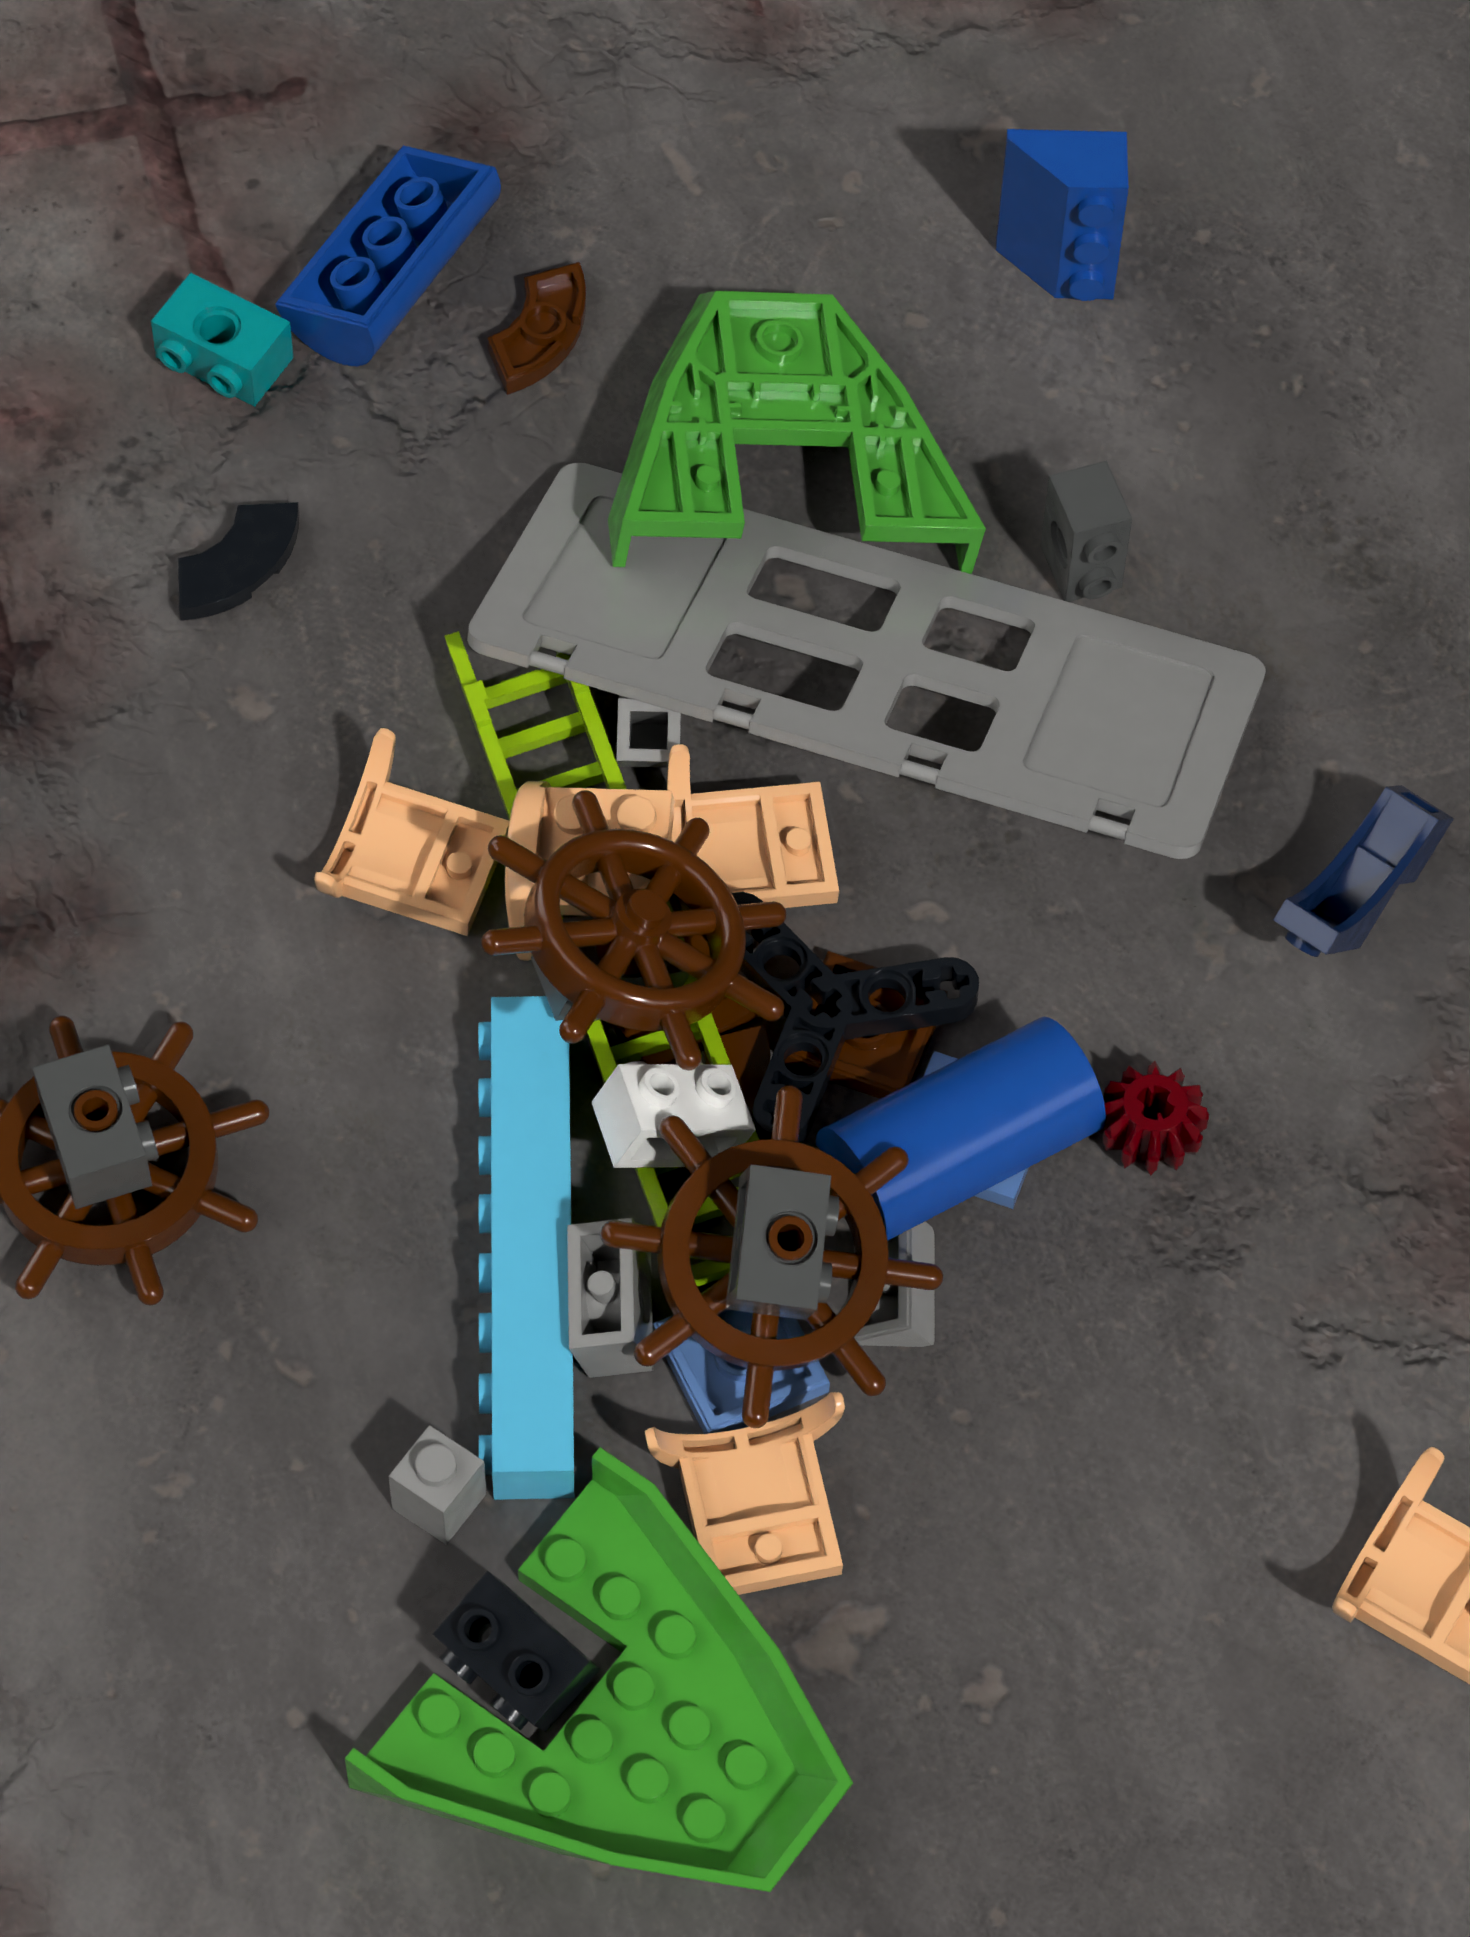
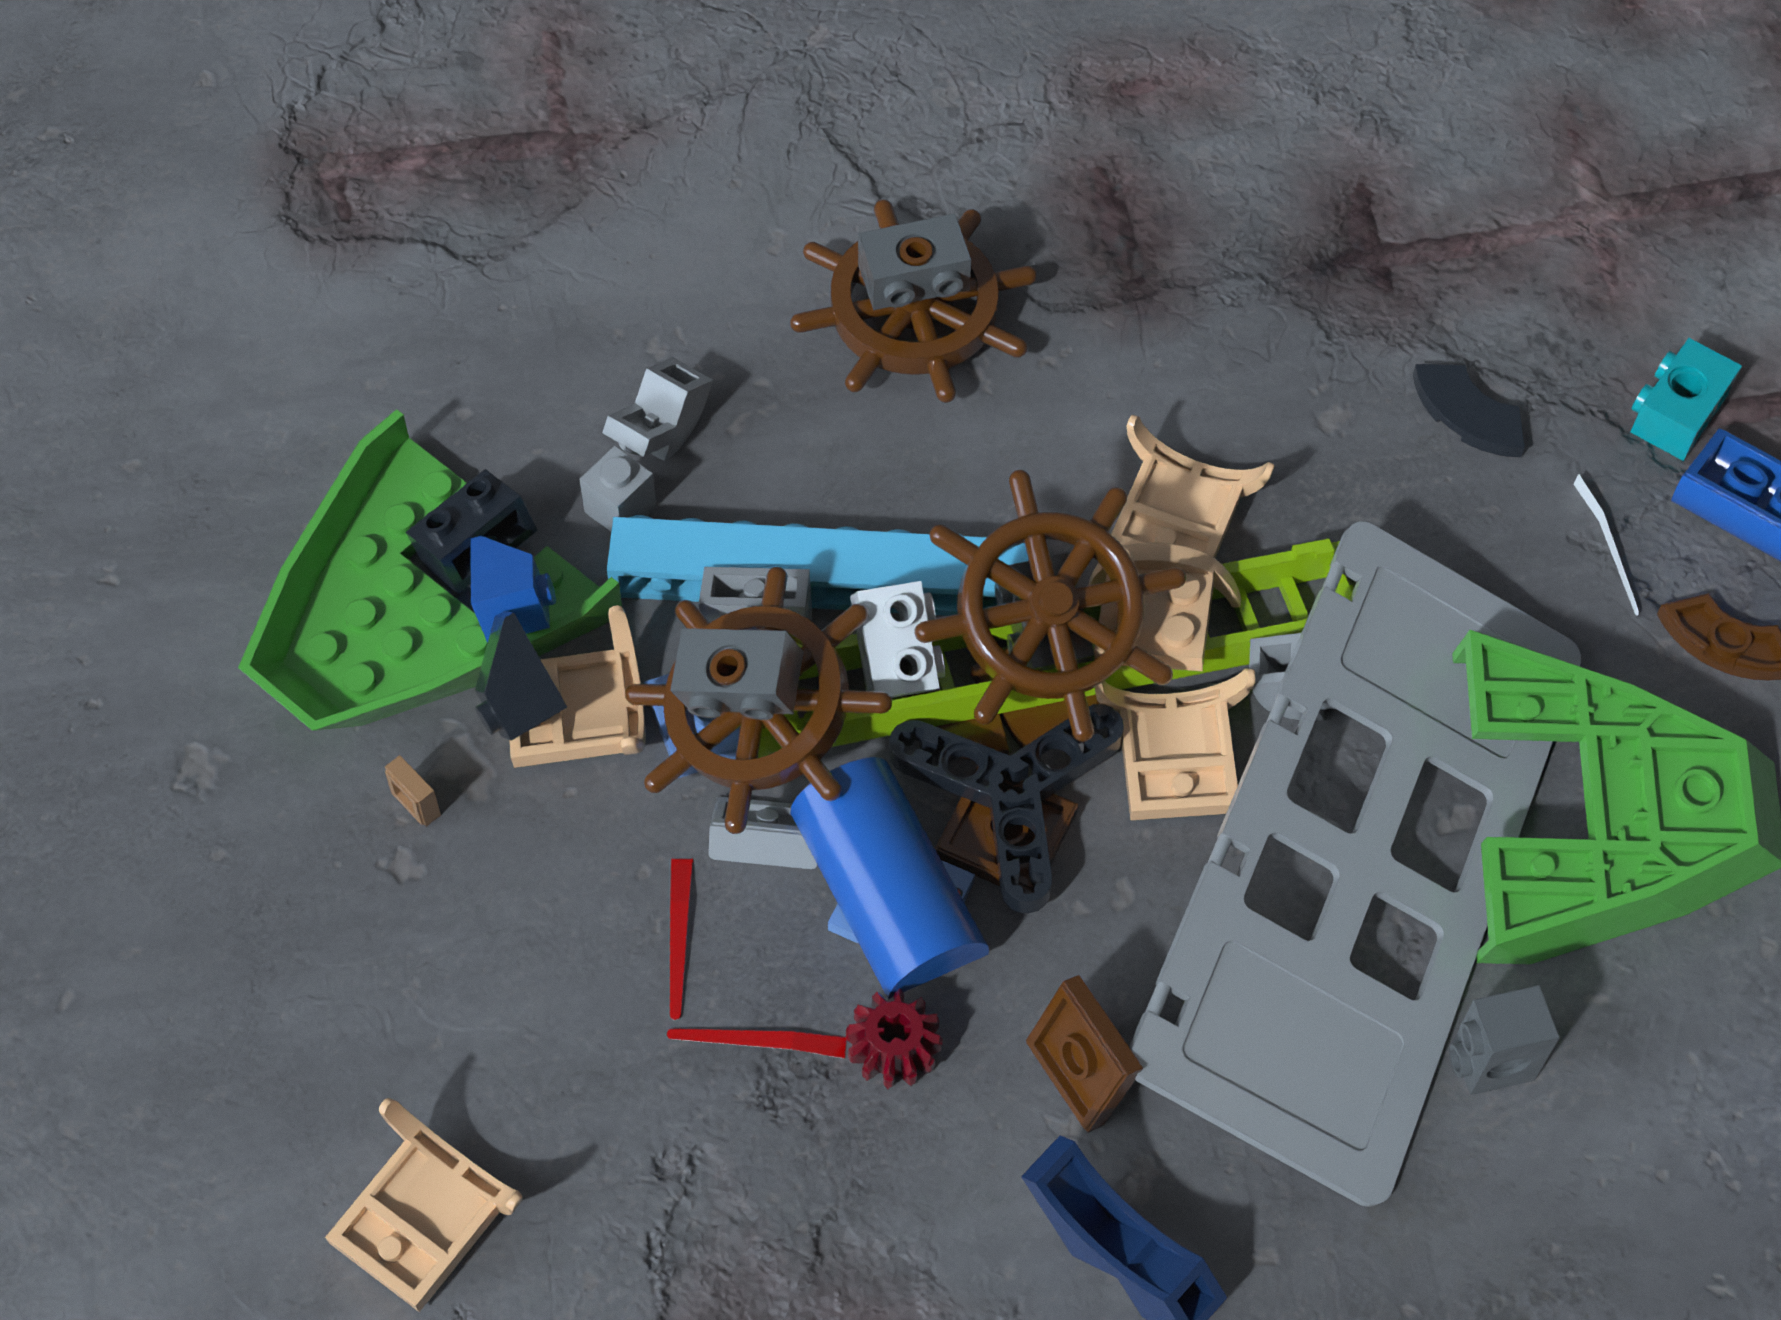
camera: 95 degrees right, 0 degrees up
(307, 1445) = (663, 412): none -> light grey brick
(362, 445) = (1598, 512): none -> white sticker
(627, 1570) = (508, 582): none -> blue slope
(769, 1540) = (514, 682): none -> black slope
(899, 1677) = (412, 791): none -> medium nougat tile
(997, 1367) = (679, 903): none -> red sticker
(1158, 1221) = (806, 1042): none -> red sticker
(1159, 916) = (1083, 1054): none -> reddish brown tile

